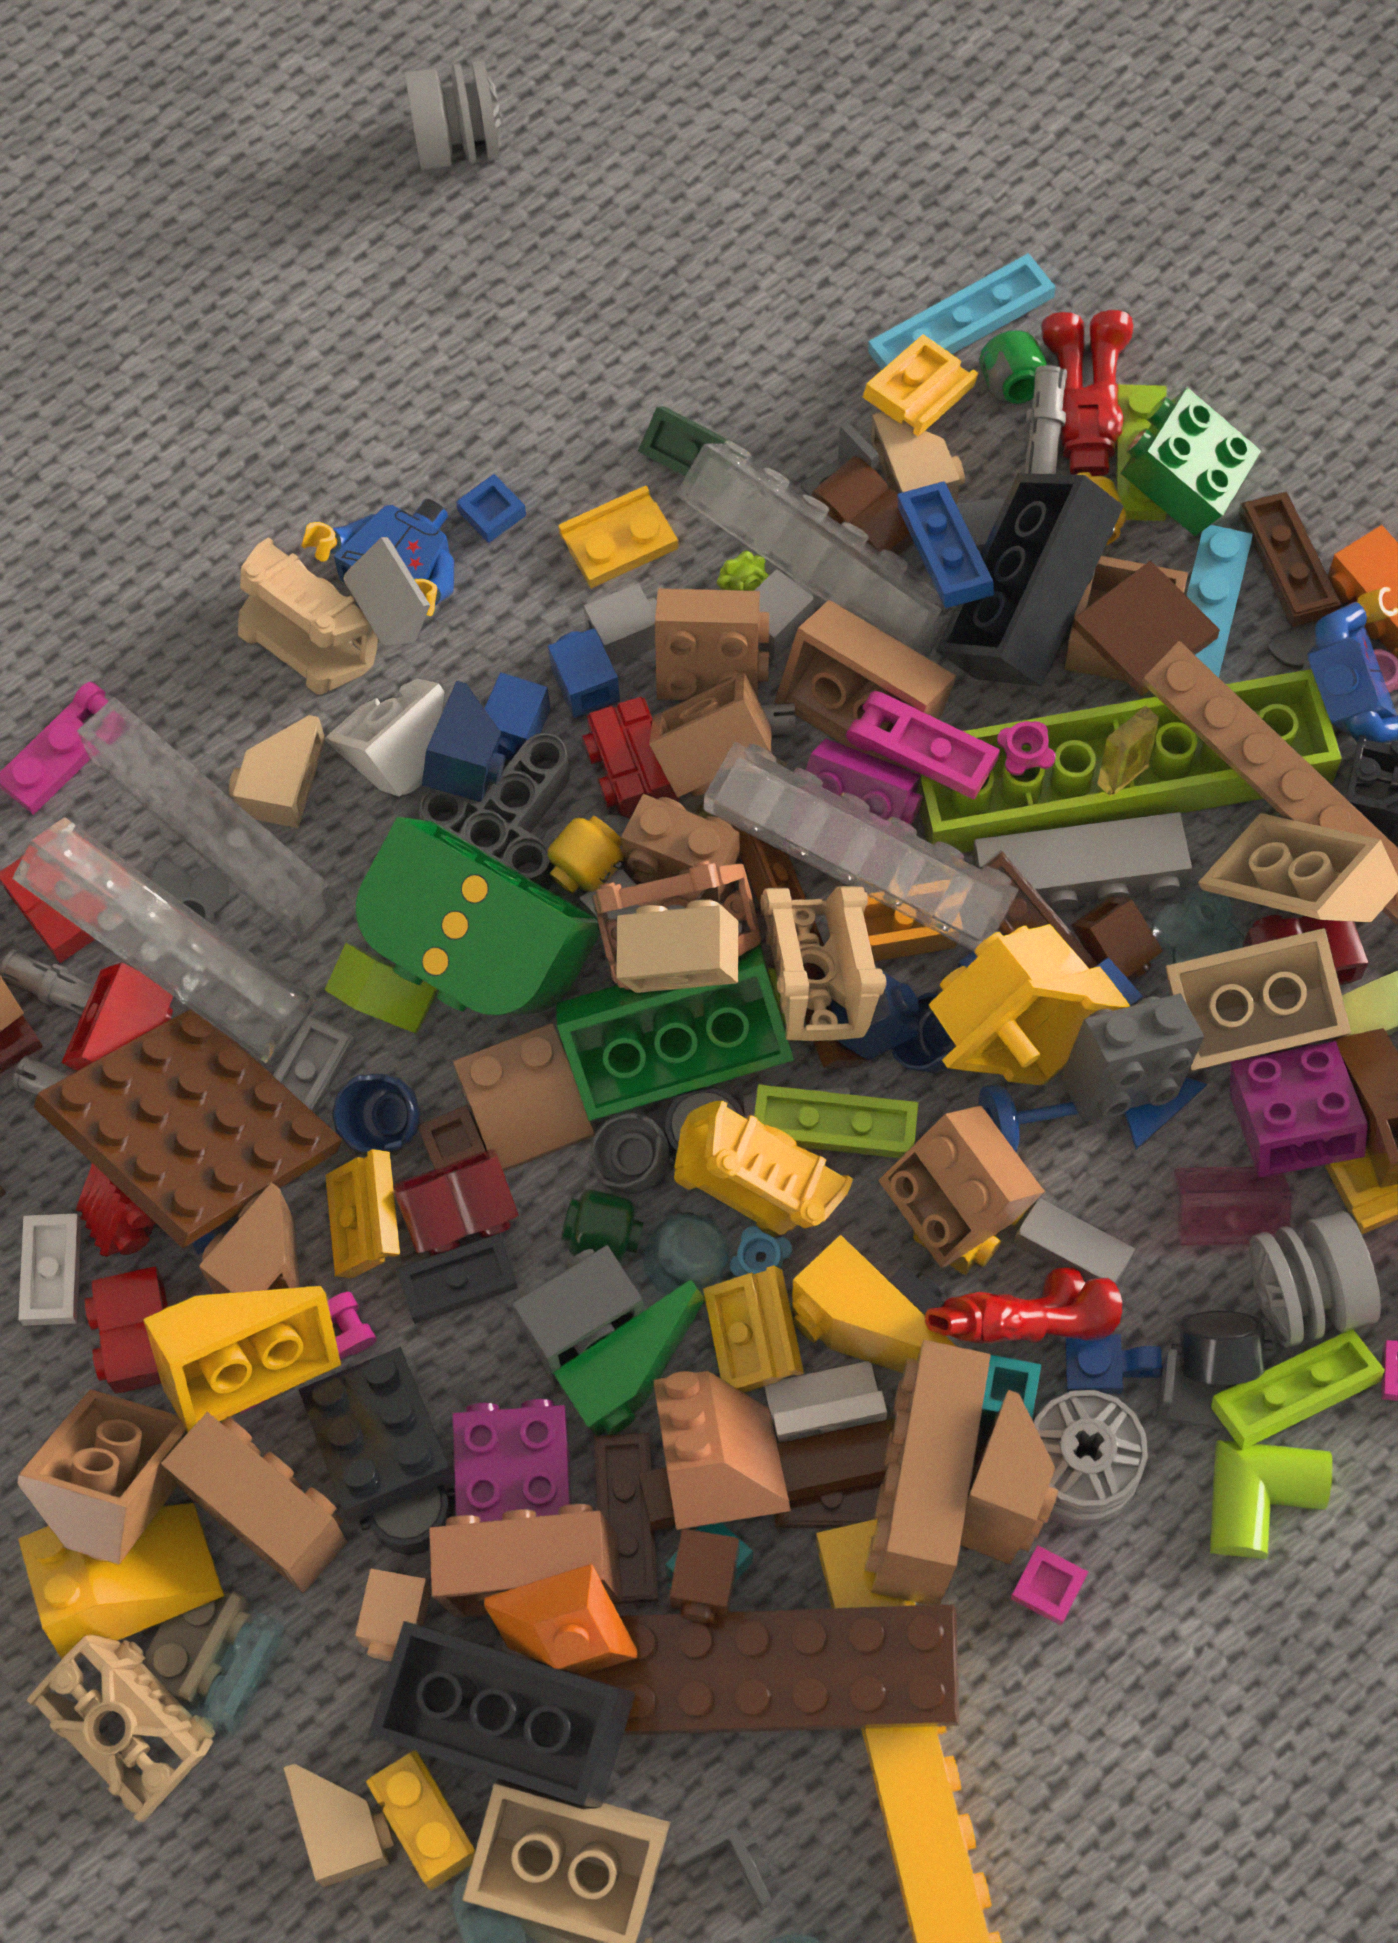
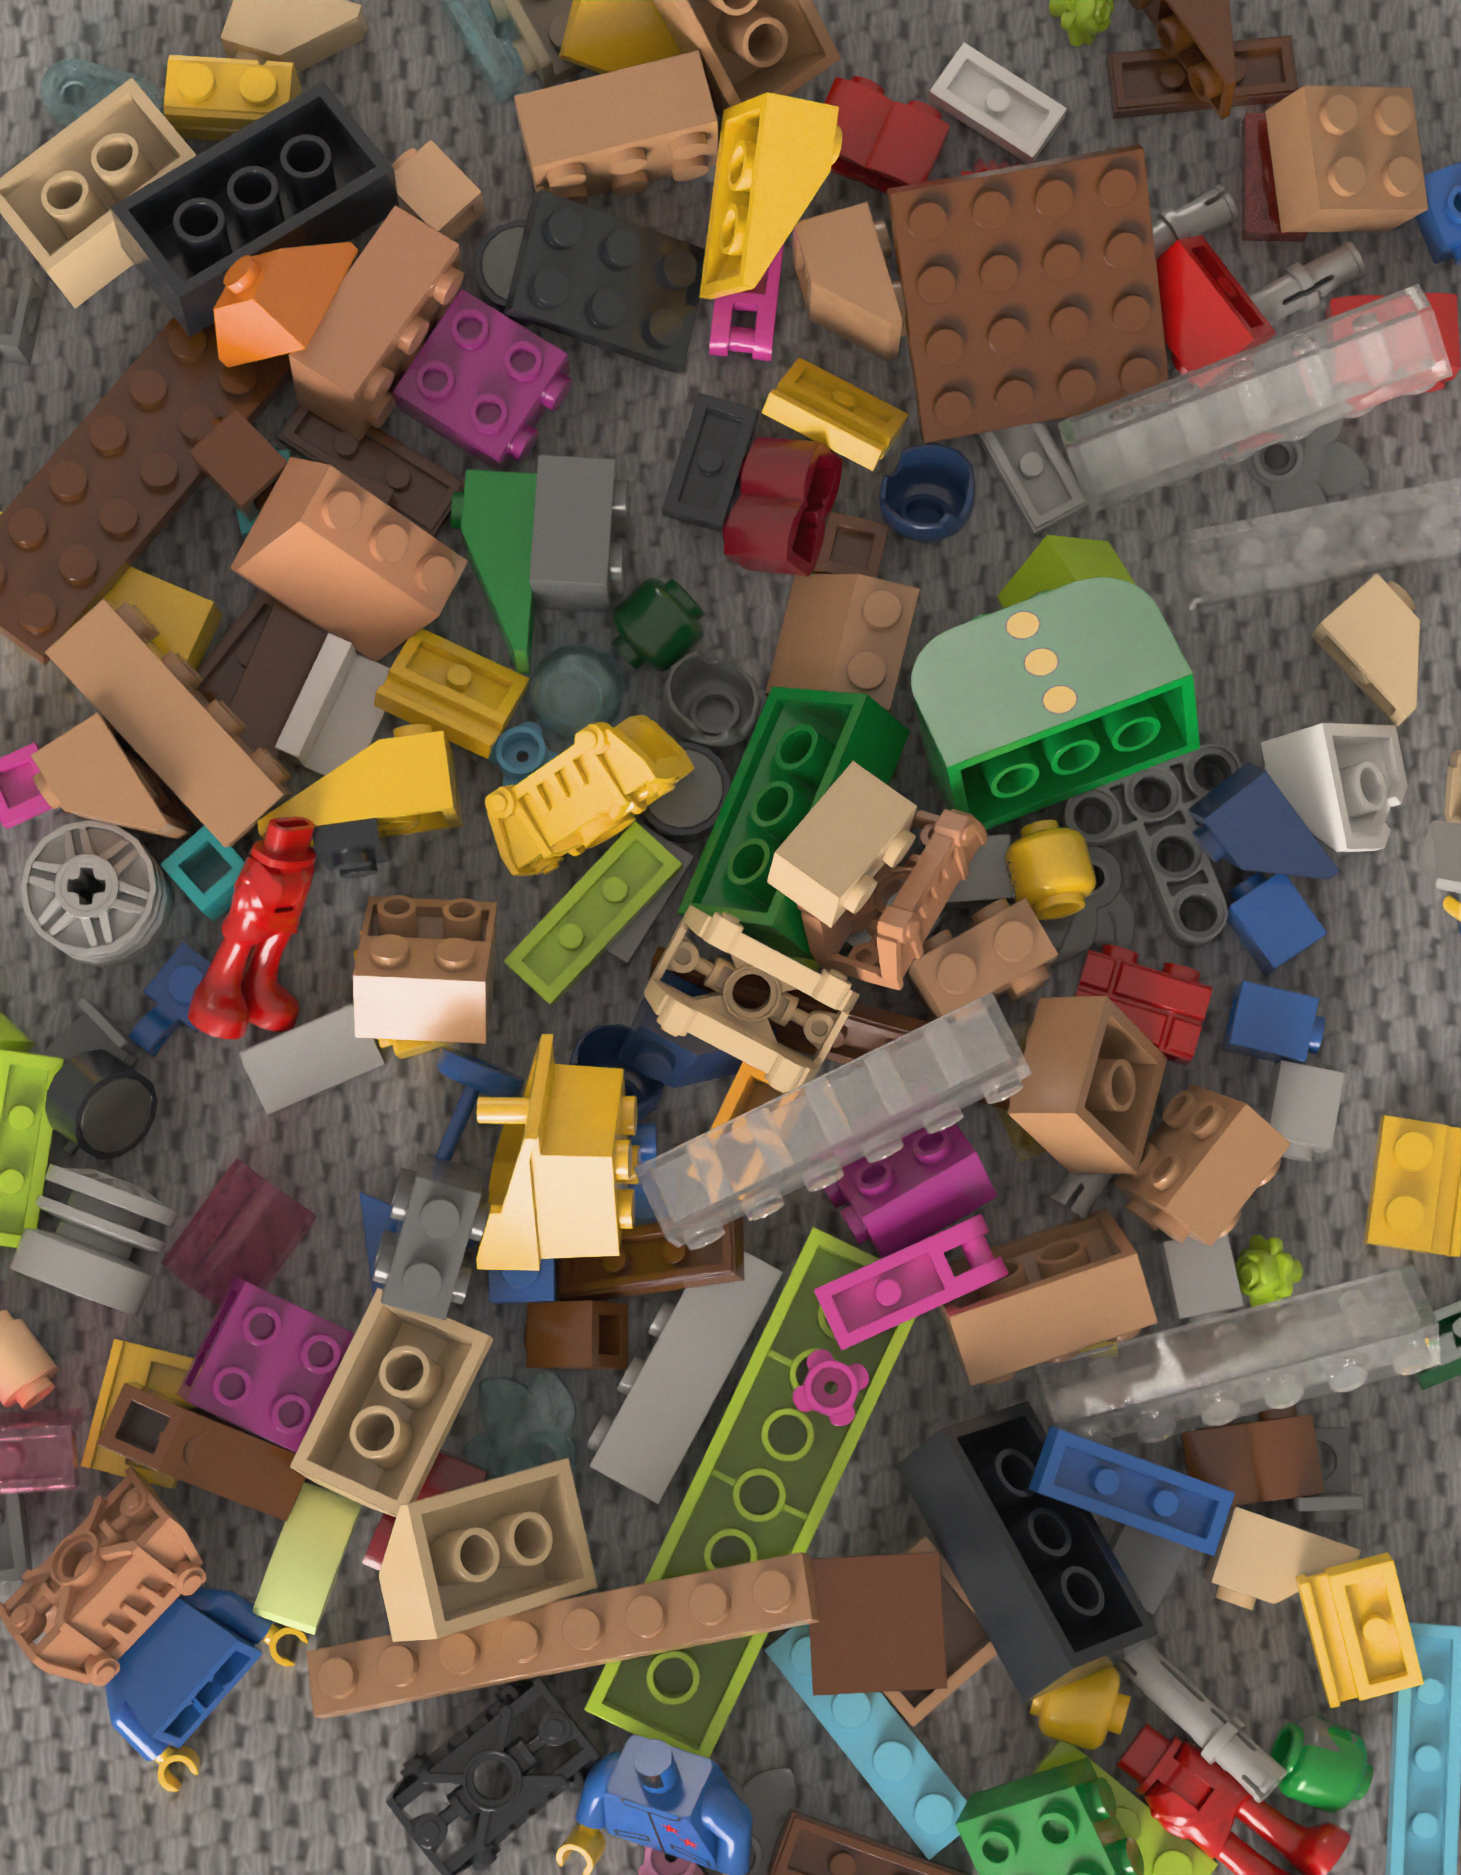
camera: 125 degrees right, 15 degrees up
(1128, 751) = (731, 1470): clear yellow tile -> none

